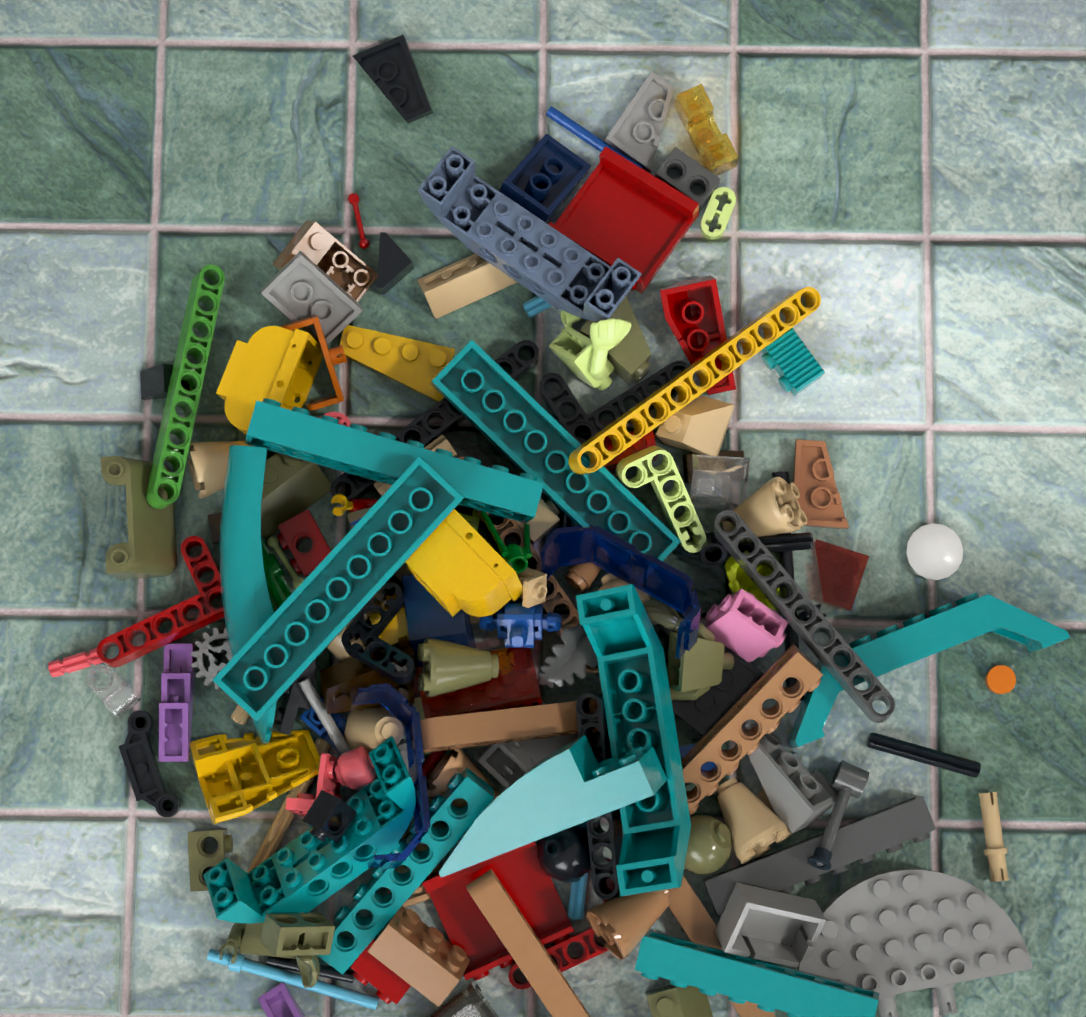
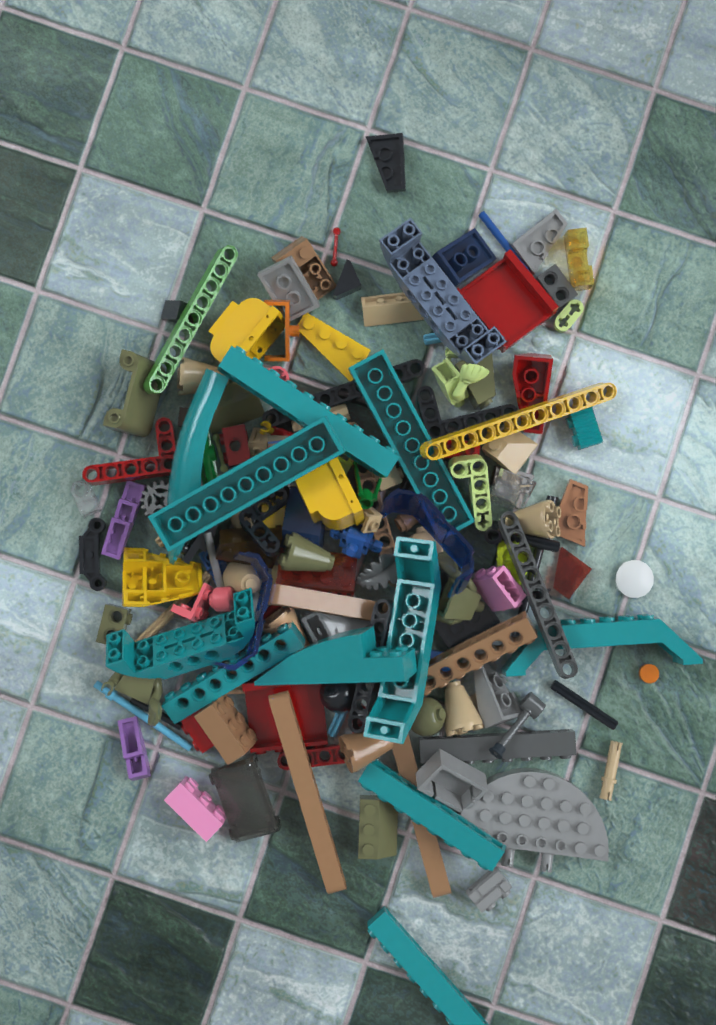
camera: 15 degrees right, 5 degrees up
(74, 663) = (66, 473): coral axle -> none
(297, 934) = (153, 691): olive brick -> none
(329, 817) = (195, 625): black brick -> none
(334, 527) = (257, 441): none -> tan bracket

